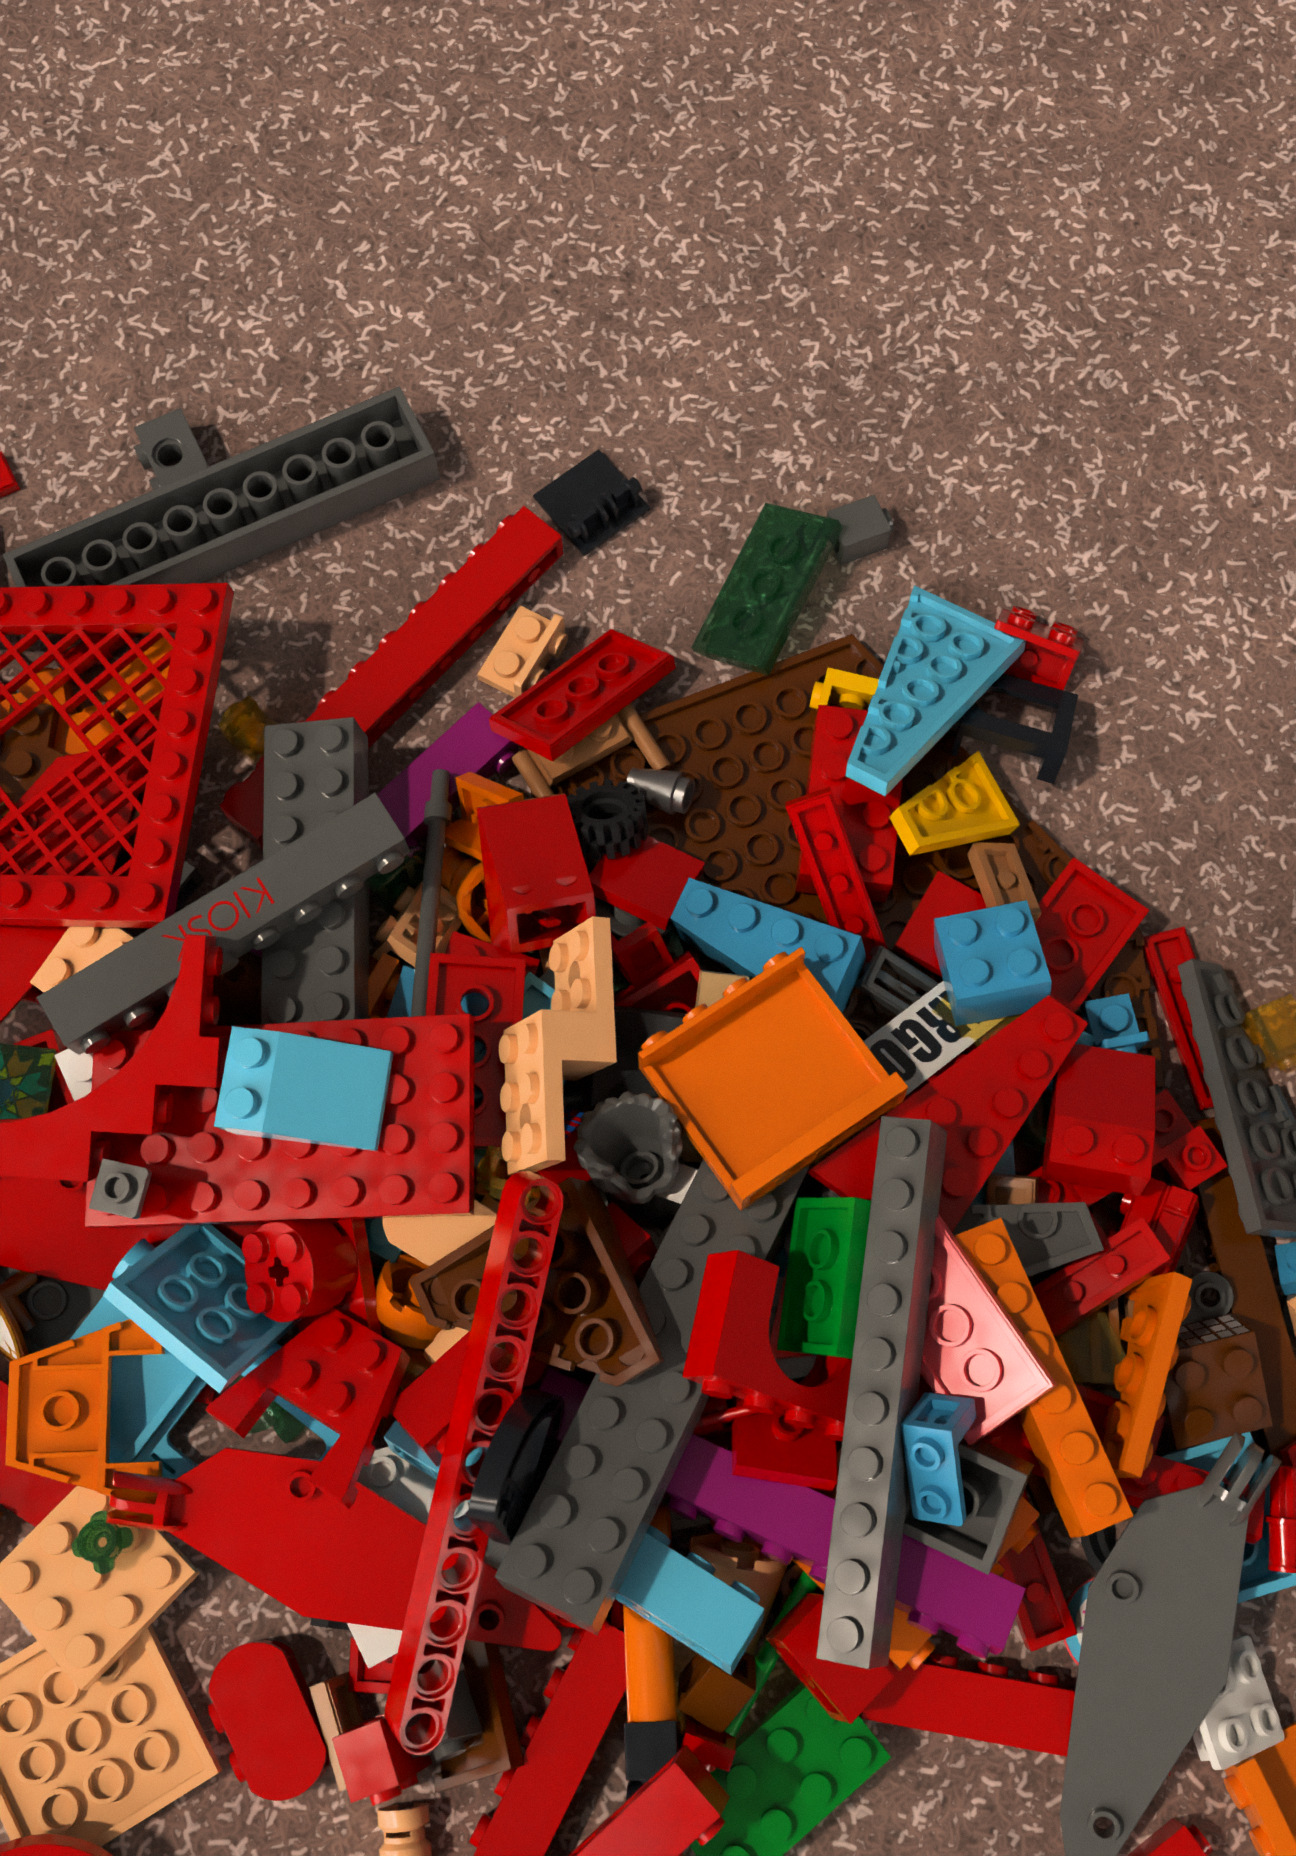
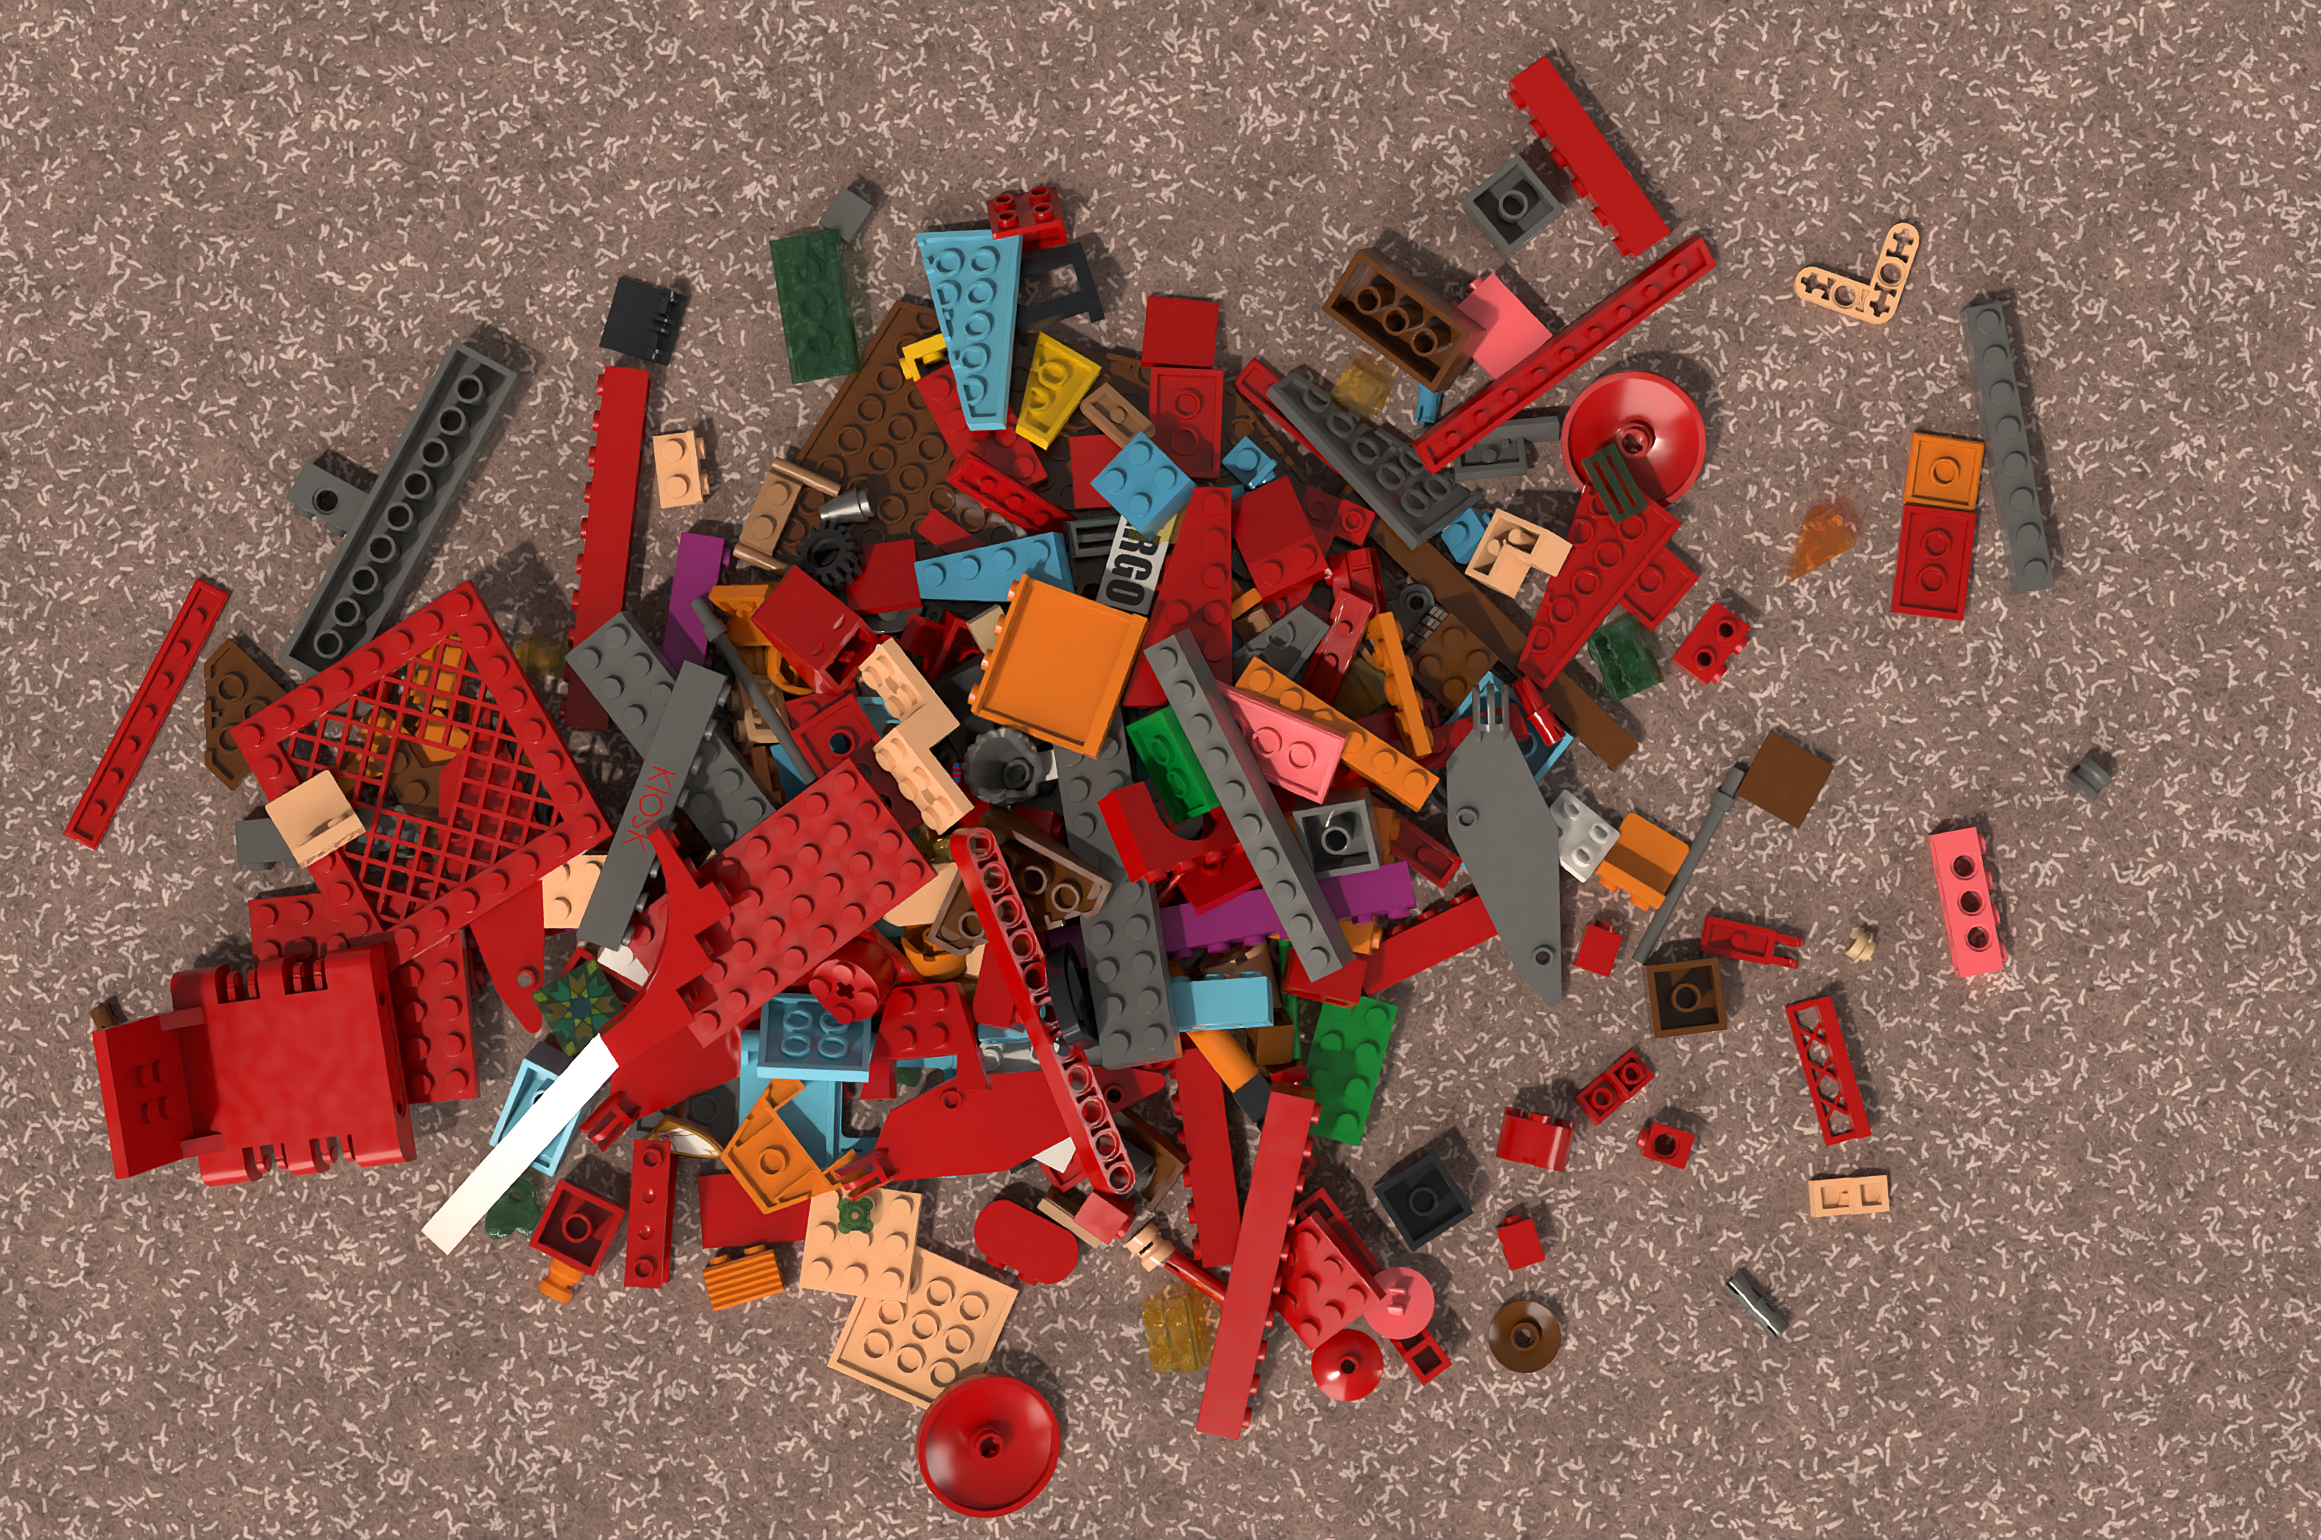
camera: 35 degrees left, 15 degrees up
(120, 1189) = (719, 1010): dark grey bracket -> none
(303, 1089) = (785, 874): medium azure slope -> none
(581, 694) = (748, 477): red tile -> none
(739, 875) = (947, 534): none -> red sticker
(932, 1456) = (1298, 822): dark azure bracket -> none
(1018, 1159) = (1243, 601): none -> orange tile
(1122, 849) = (1179, 333): none -> red tile

